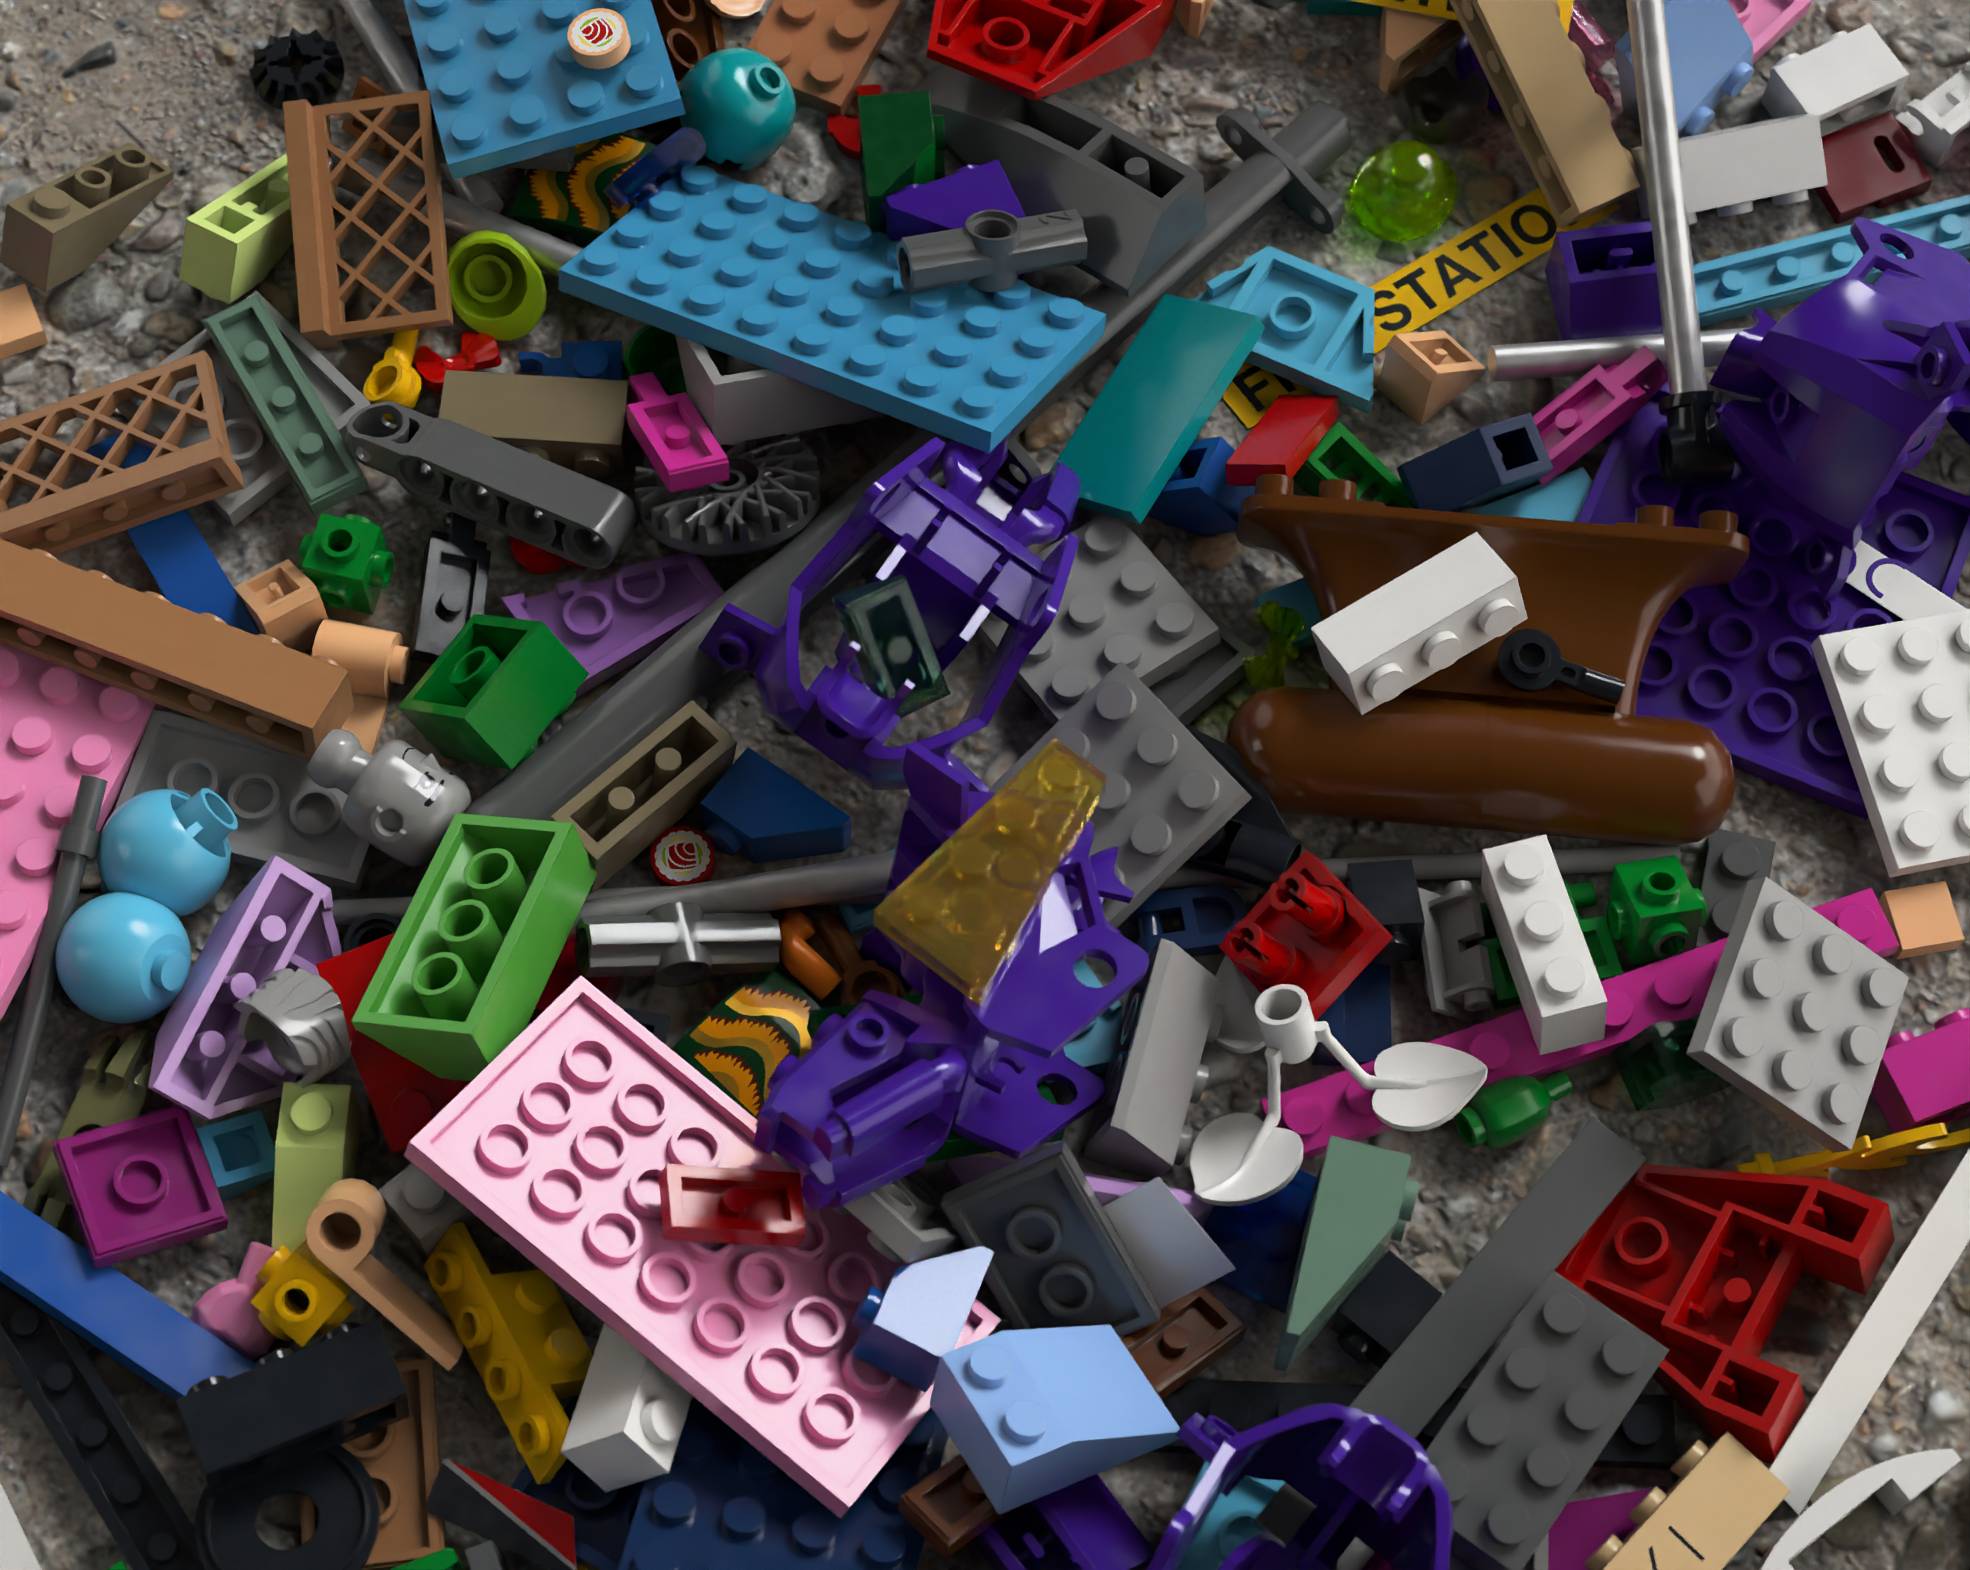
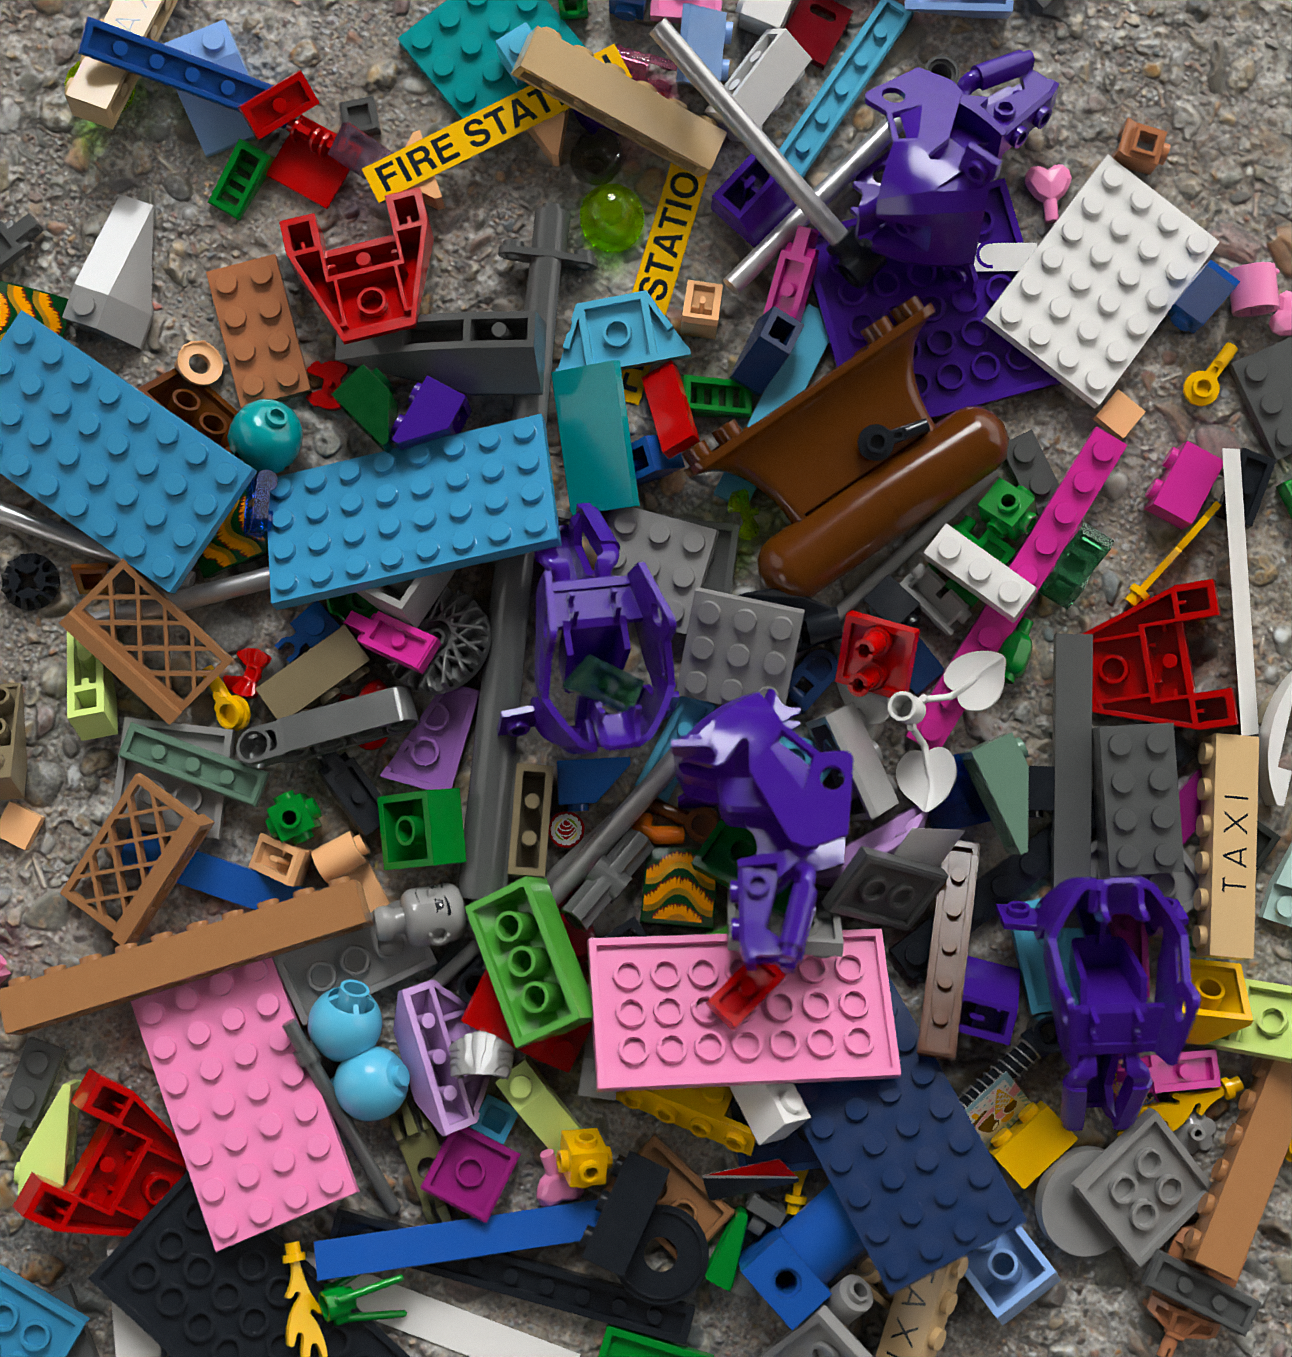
camera: 40 degrees left, 20 degrees up
(341, 1237) = (591, 1133): light nougat door -> none
(496, 285) = (233, 621): lime hat -> none
(599, 38) = (186, 470): tile -> none
(919, 1314) = (862, 967): slope -> none
(981, 885) = (753, 774): clear yellow wing -> none
(991, 250) = (466, 428): dark grey piece -> none
(1046, 1409) = (945, 960): light blue slope -> none
(1419, 623) = (819, 469): white brick -> none
(1798, 1015) = (1114, 520): light grey plate -> none

